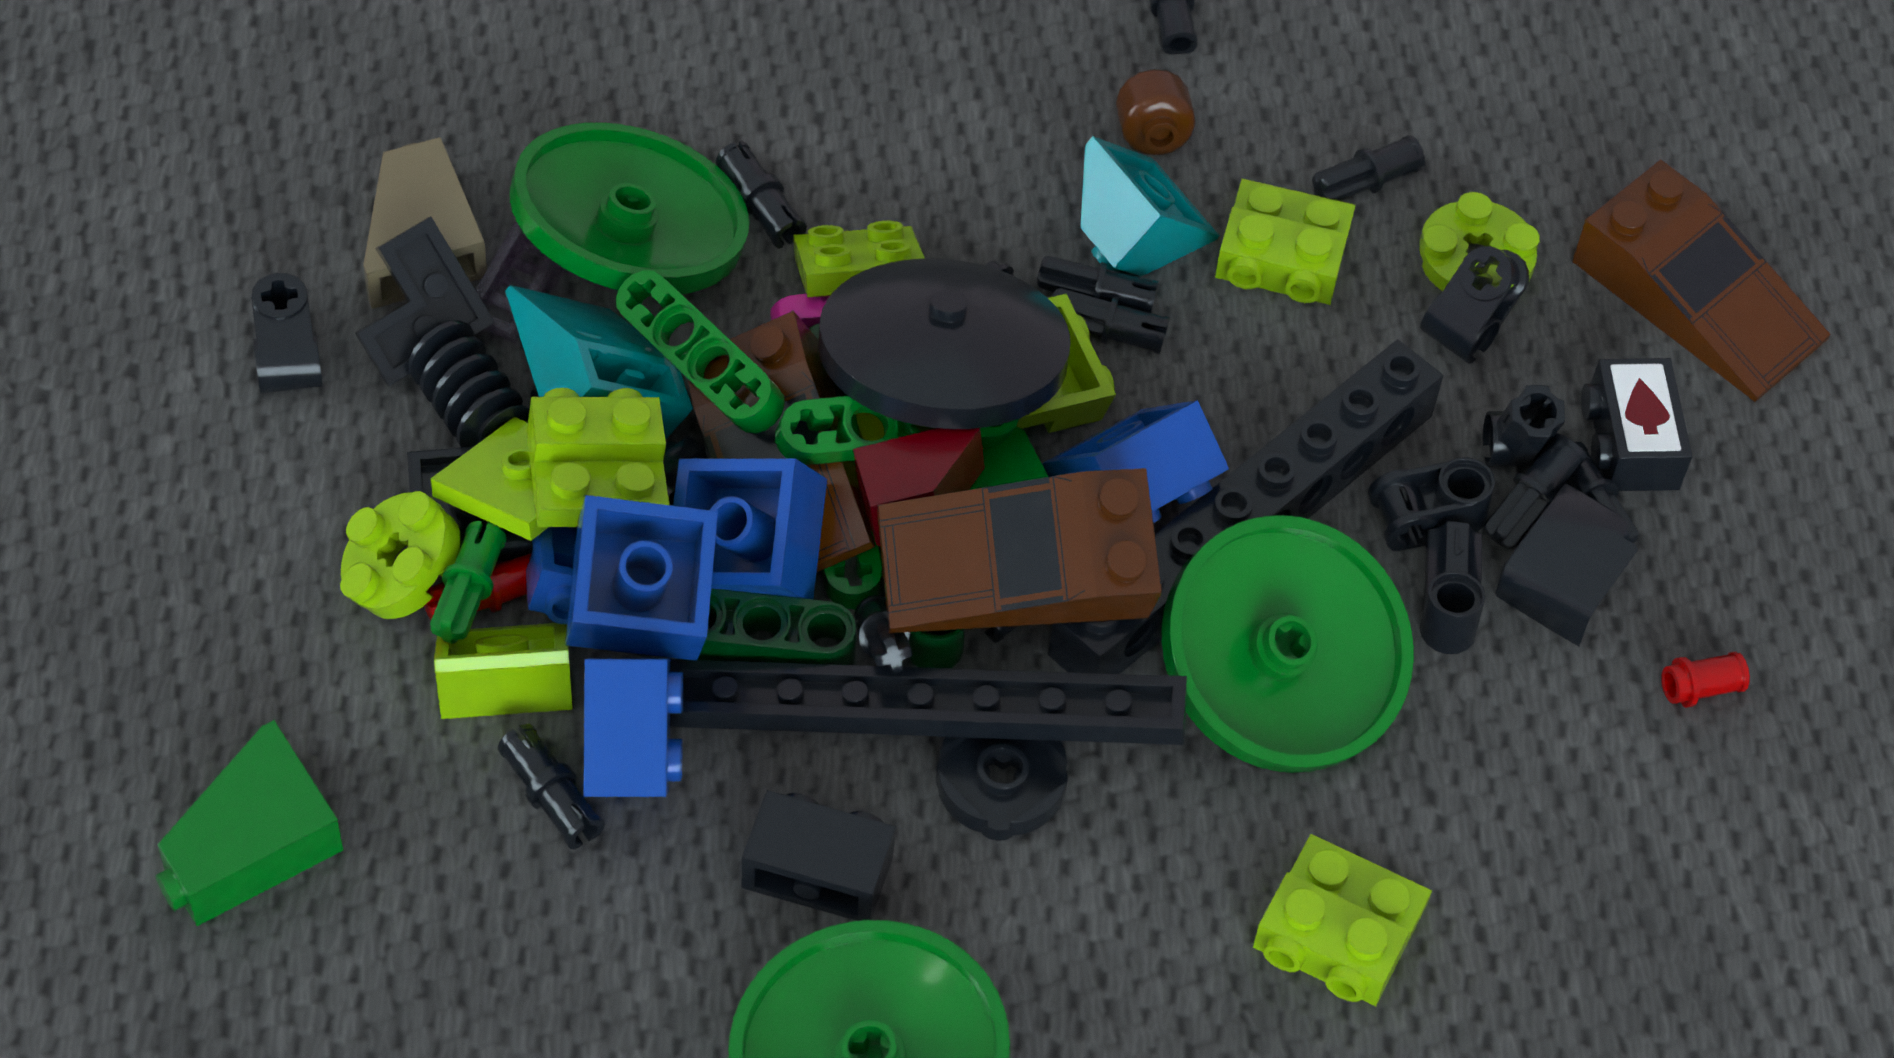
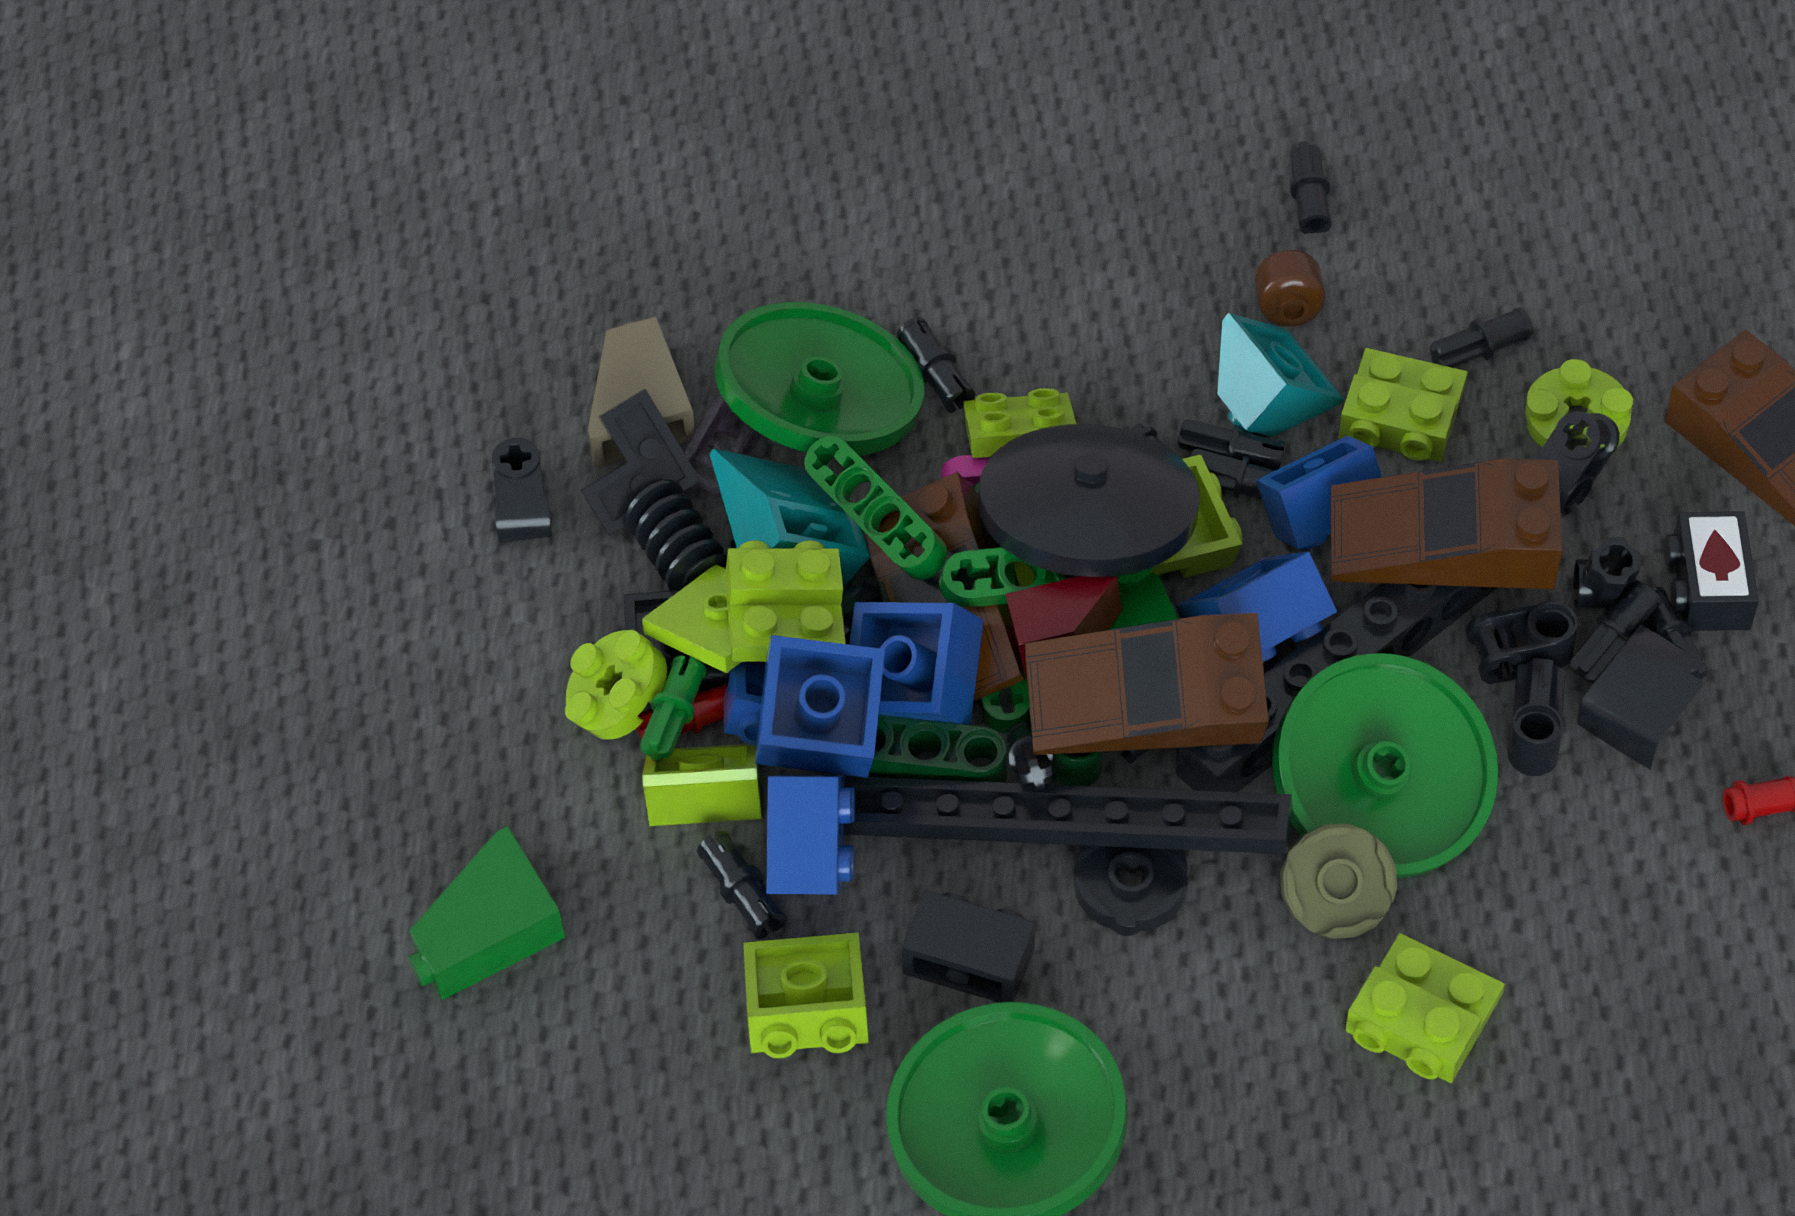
camera: 10 degrees right, 0 degrees up
(629, 914) = (805, 994): none -> lime plate
(1204, 337) = (1300, 492): none -> blue brick
(1240, 774) = (1338, 880): none -> olive tile
(1354, 373) = (1451, 526): none -> reddish brown slope

